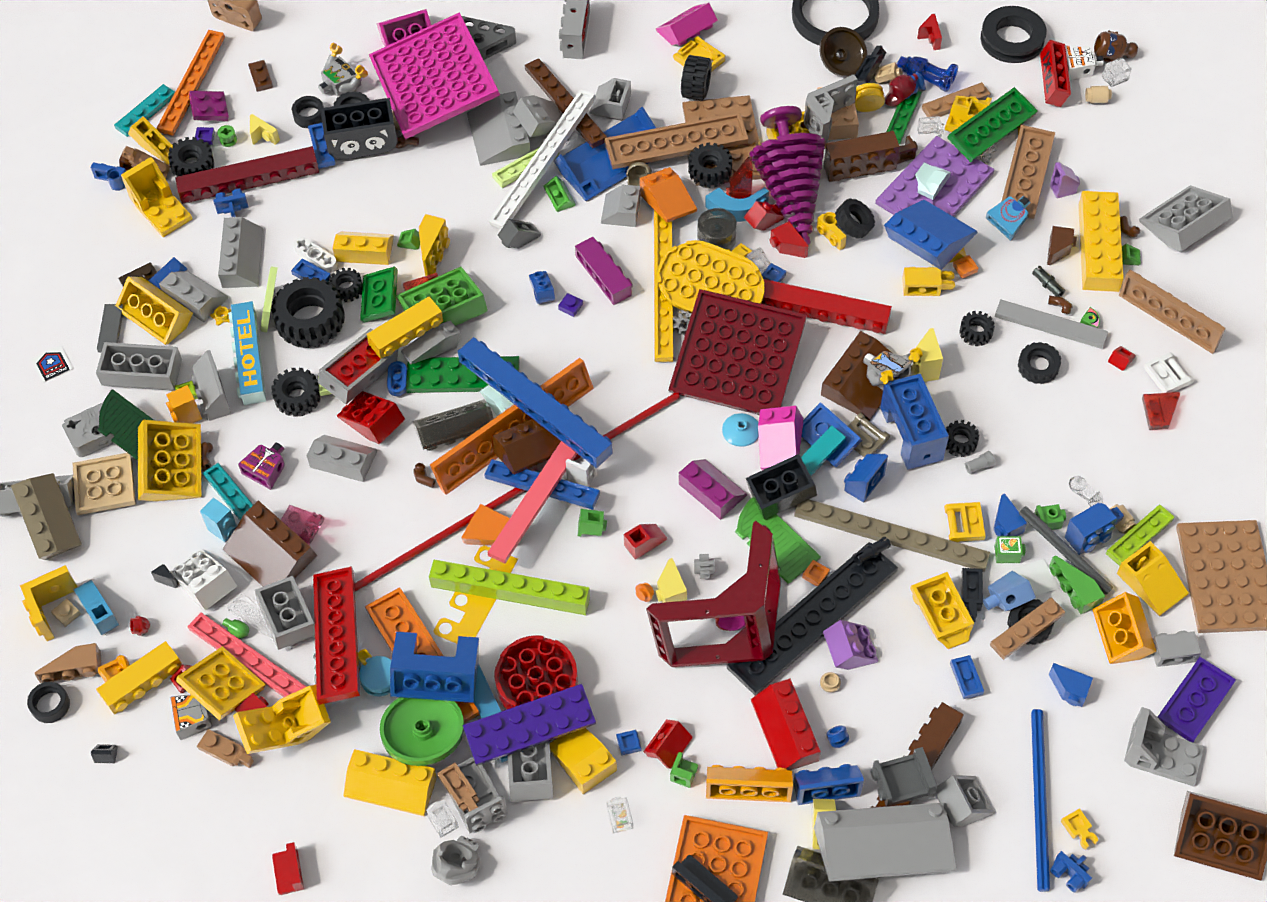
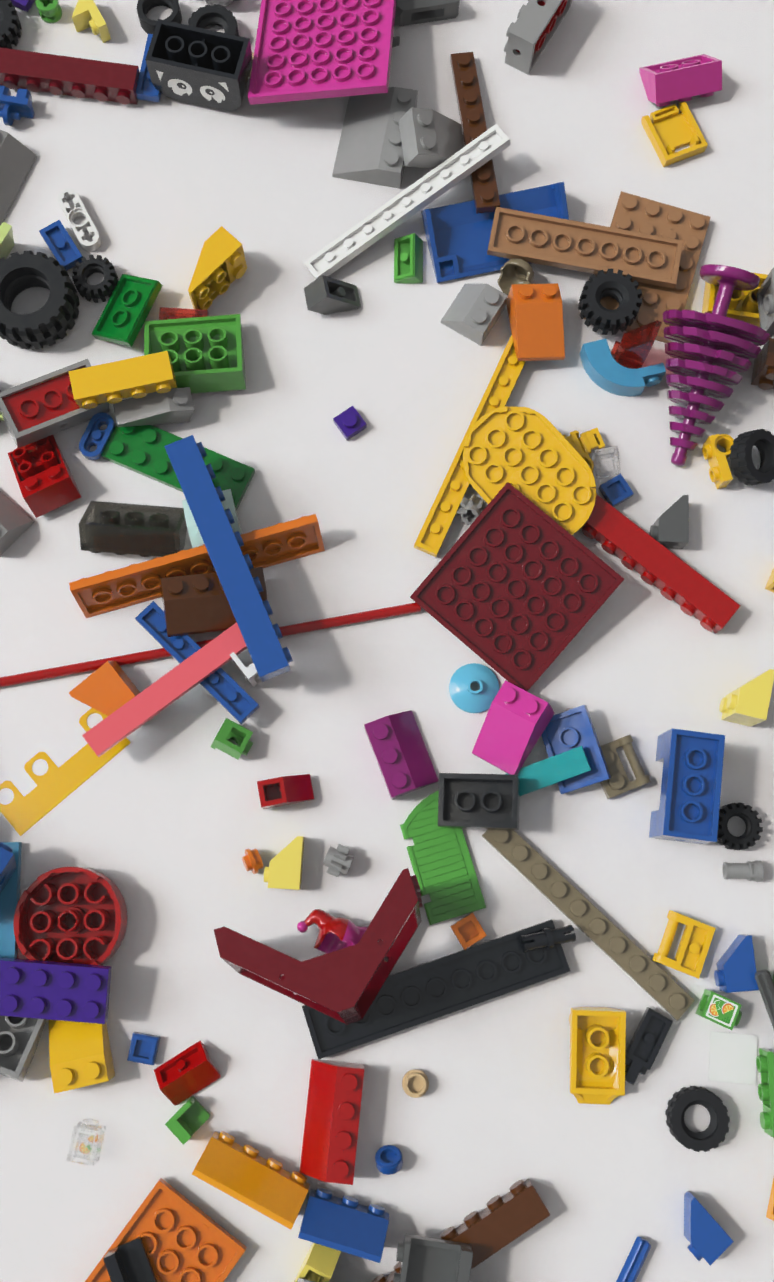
camera: 20 degrees right, 20 degrees up
(363, 247) = (139, 233): yellow slope -> none
(402, 142) = (267, 108): reddish brown arm -> none
(409, 239) = (195, 244): bright green slope -> none
(421, 476) = (67, 575): reddish brown arm -> none
(509, 587) = (97, 782): lime brick -> none
(513, 170) = (366, 202): yellowish green tile -> none
(542, 287) = (325, 383): blue plate -> none
(603, 270) = (410, 393): magenta brick -> none
(612, 99) = (534, 150): light grey slope -> none
(696, 77) = (652, 165): black tyre -> none
(717, 228) = (574, 399): clear smoke wheel -> none
(763, 215) = (643, 401): red slope -> none
(788, 241) = (657, 450): red slope -> none
(822, 278) = (673, 525): none -> dark grey slope
(848, 379) = (658, 685): reddish brown slope -> none
(850, 645) = (461, 1049): medium lavender slope -> none
(866, 476) = (591, 828): blue slope -> none
(890, 367) = (692, 700): torso -> none
(966, 677) = (581, 1156): blue plate -> none
(1009, 592) = (689, 1074): medium blue torso -> none
(1027, 628) = (686, 1135): medium nougat plate -> none

